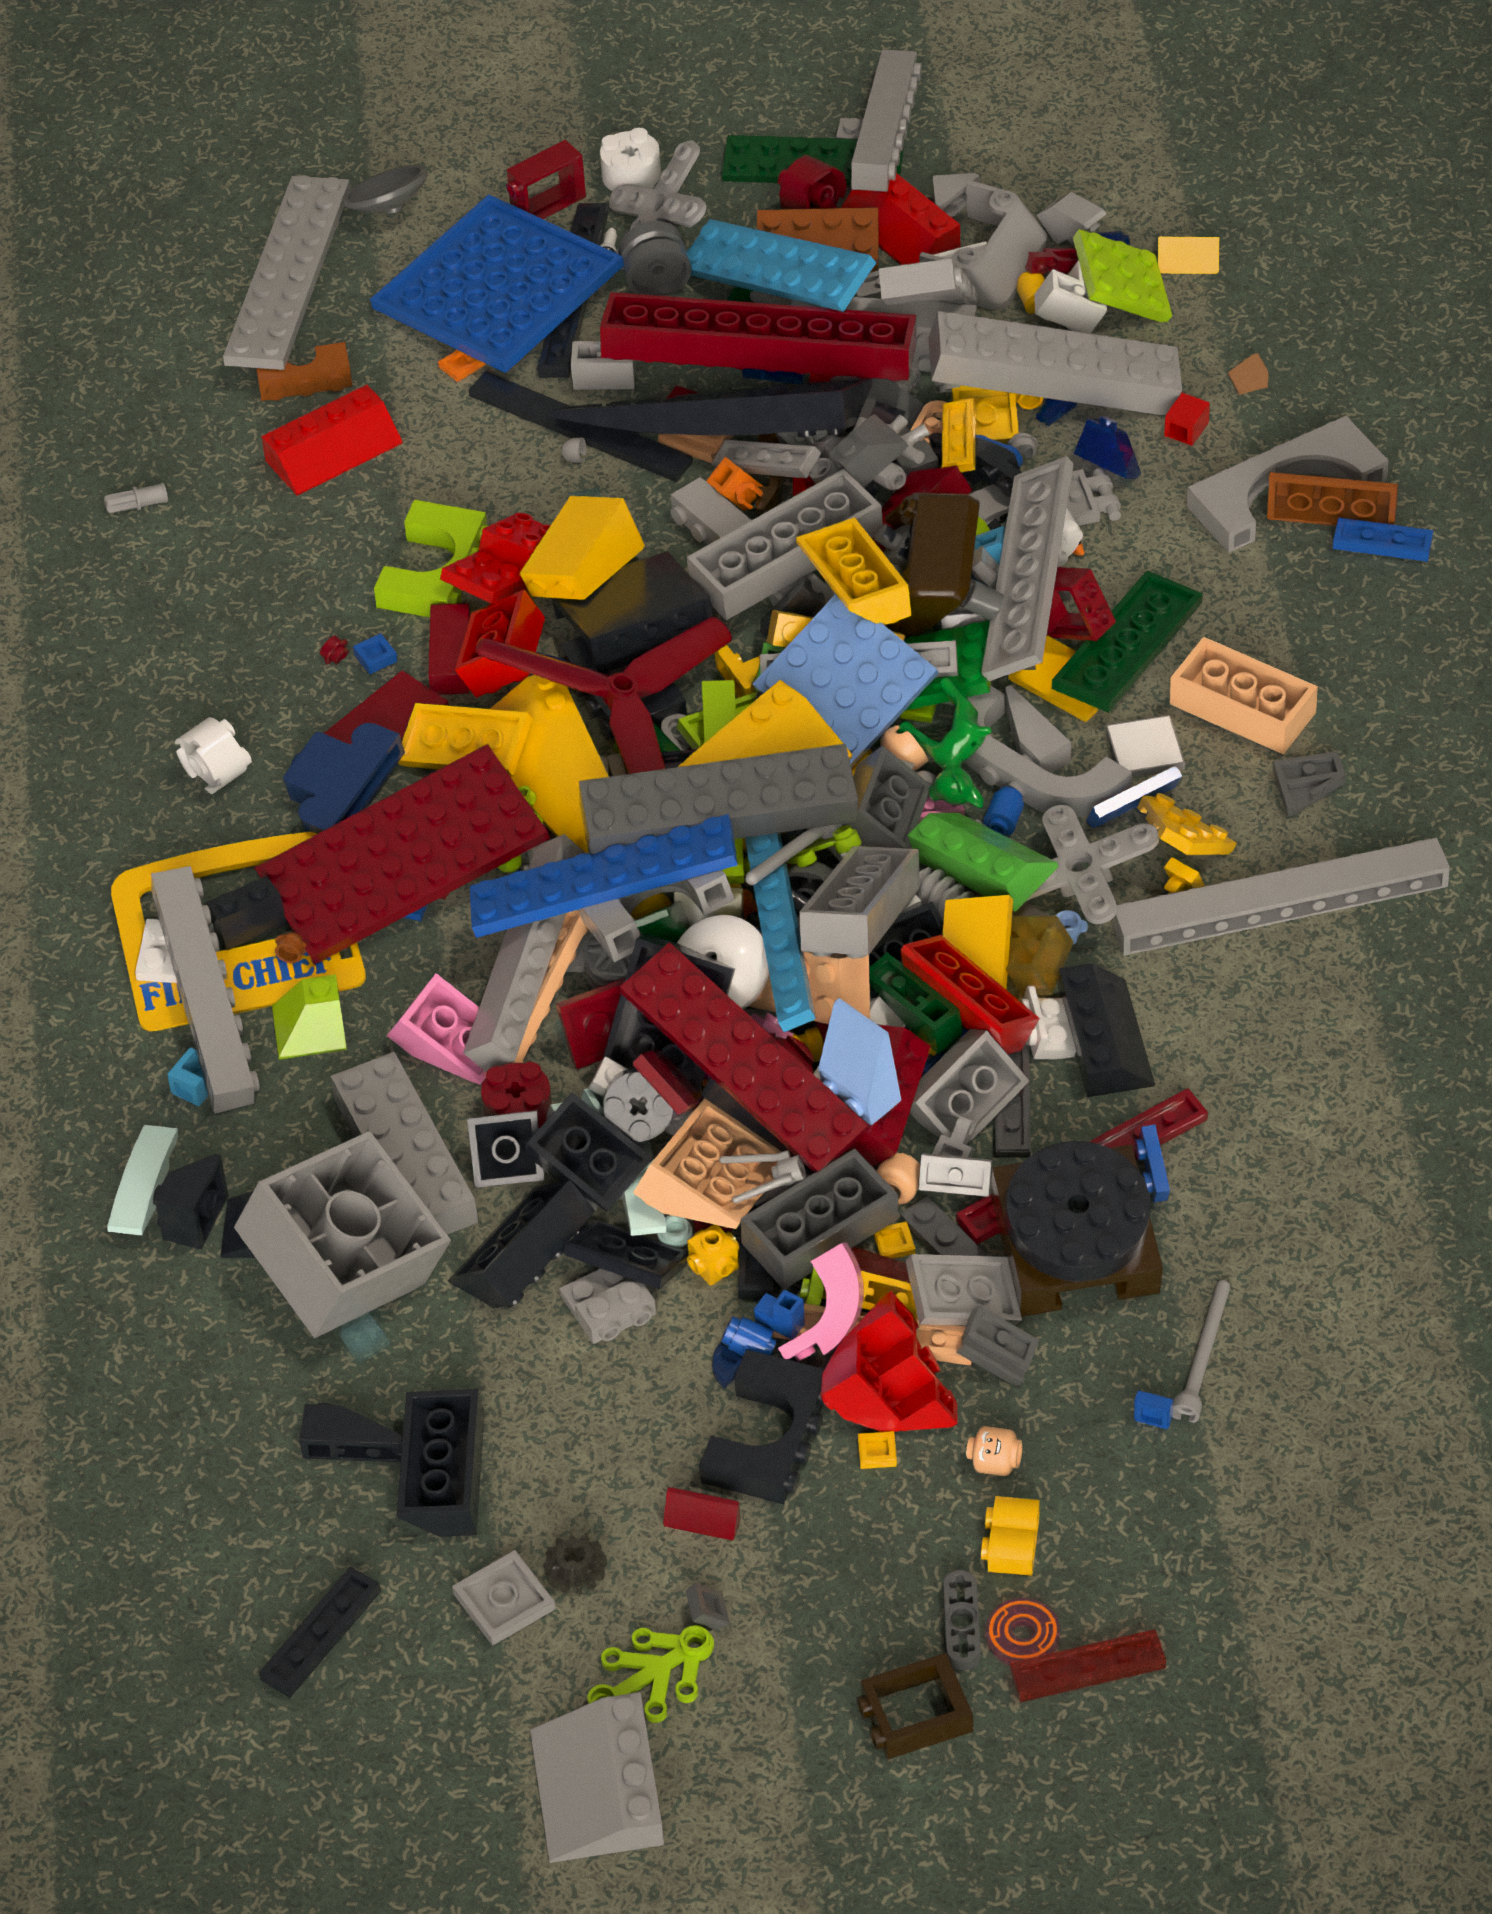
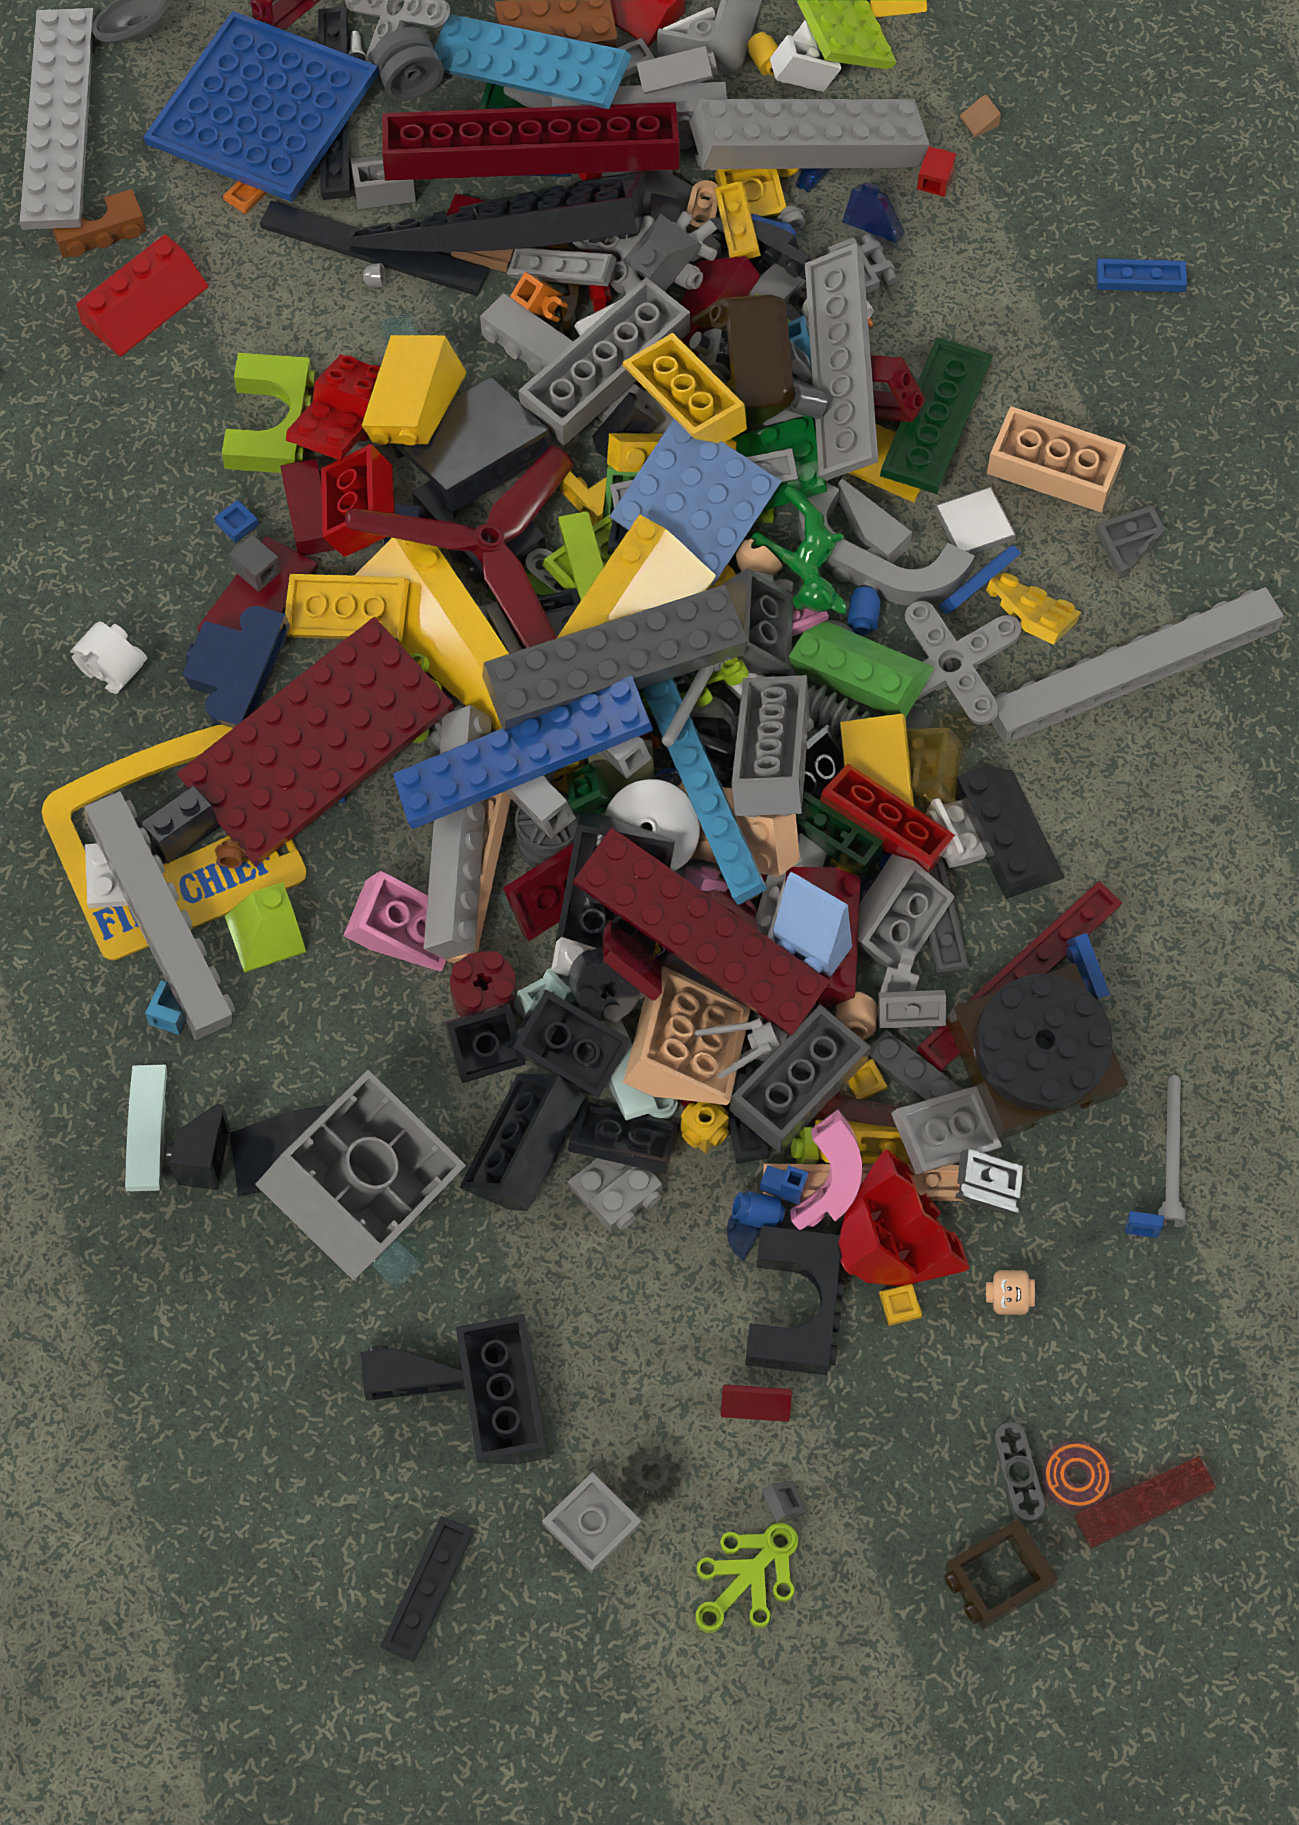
camera: 15 degrees left, 15 degrees up
(334, 650) = (196, 522): dark red plate -> none
(382, 689) = (254, 562): none -> dark grey brick
(383, 1101) = (379, 1039): light grey brick -> none
(597, 1780) = (724, 1704): light grey slope -> none
(1012, 1535) = (1046, 1378): yellow brick -> none
(1052, 258) = (780, 19): dark red hinge -> none
(1072, 920) = (952, 716): light blue plate -> none
(1181, 877) = (1042, 659): yellow tile -> none
(1327, 499) = (1088, 240): dark orange slope -> none
(1330, 451) = (1075, 188): light grey arch -> none

